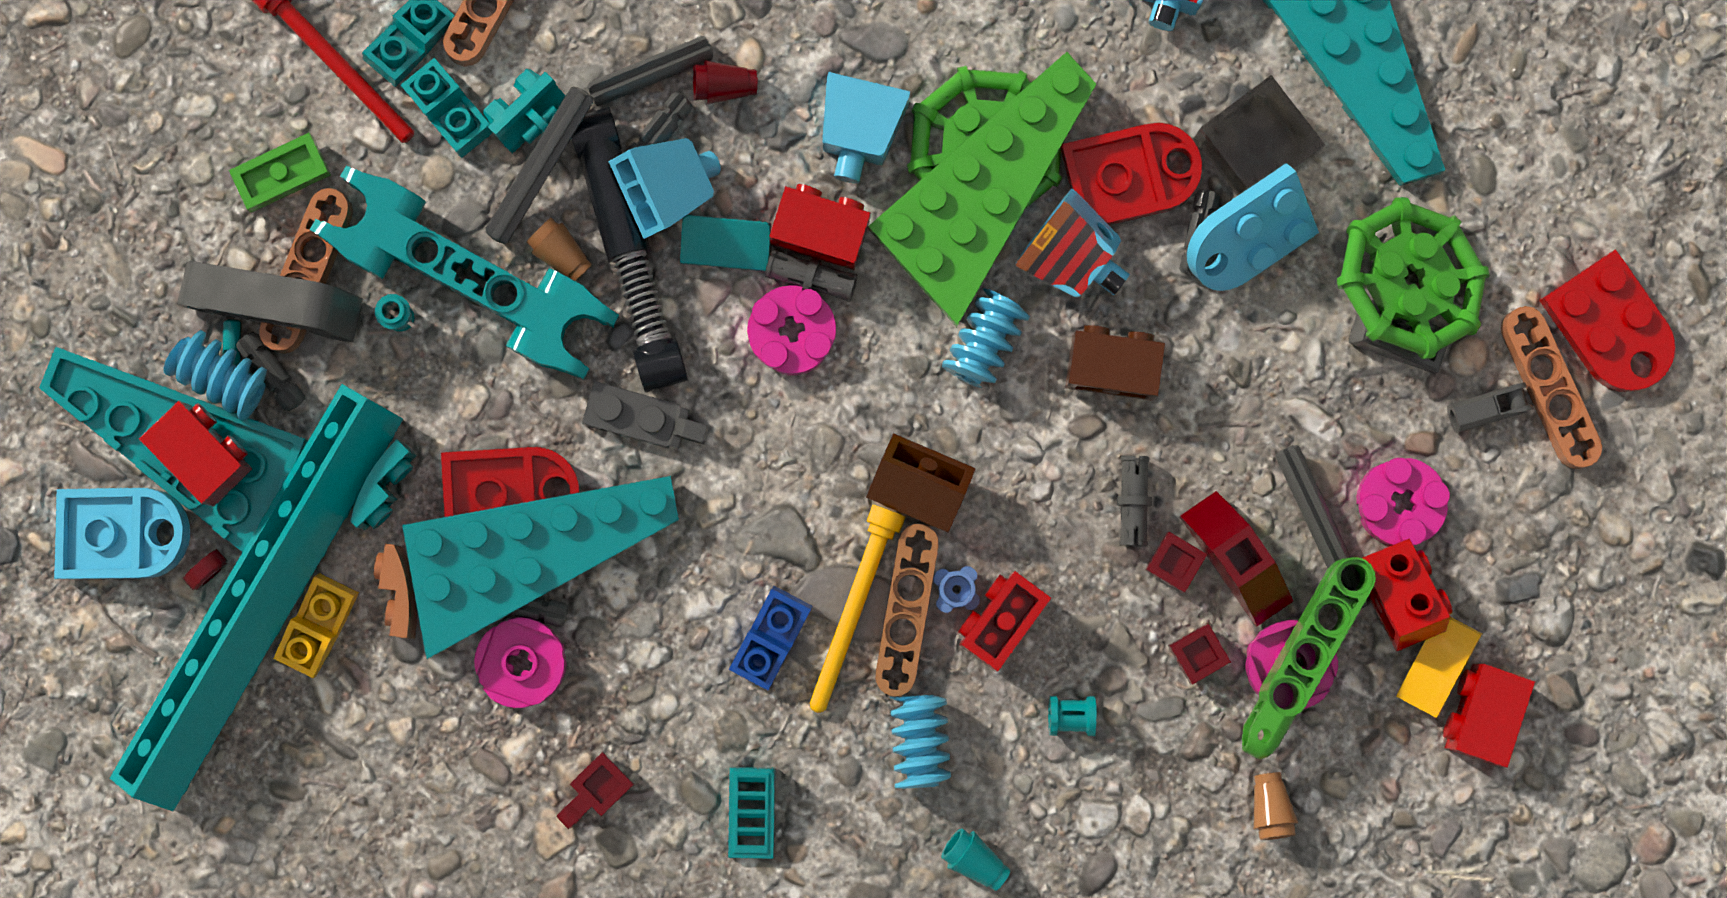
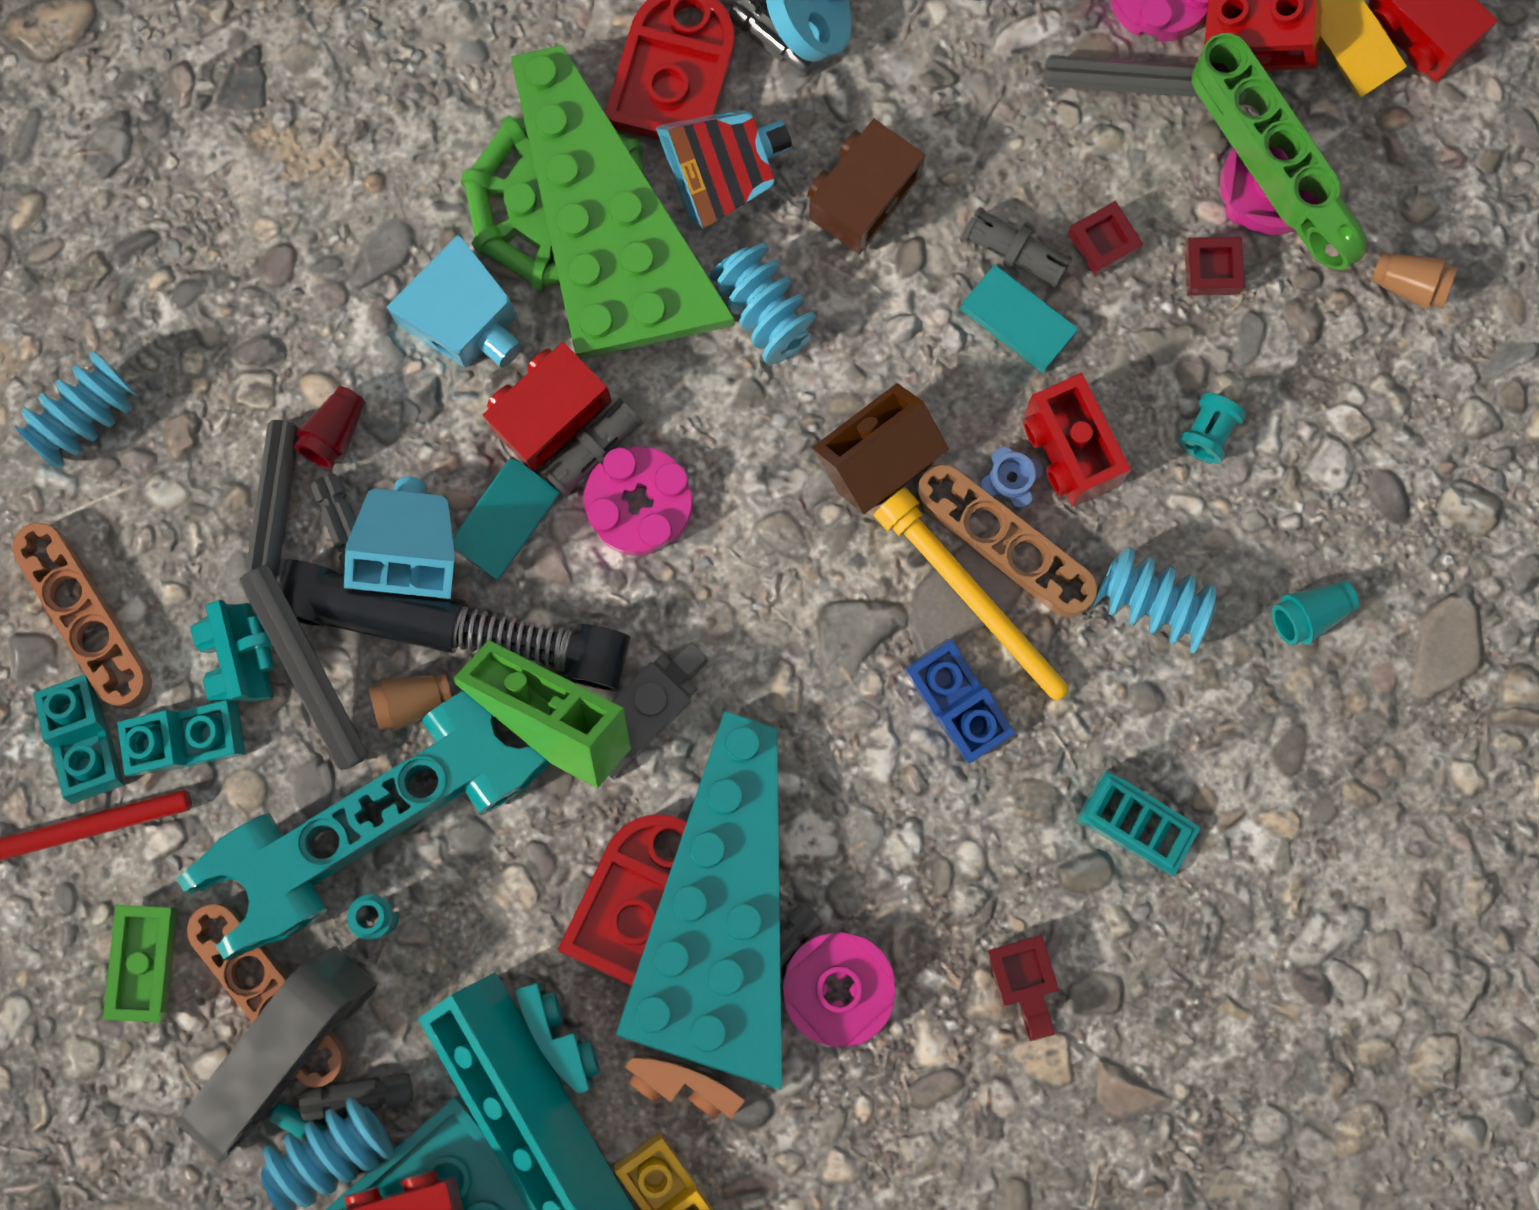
camera: 55 degrees left, 5 degrees down
(597, 353) = (548, 712): none -> bright green slope
(1080, 531) = (1019, 319): none -> teal tile
(1238, 557) = (1133, 170): dark red slope -> none

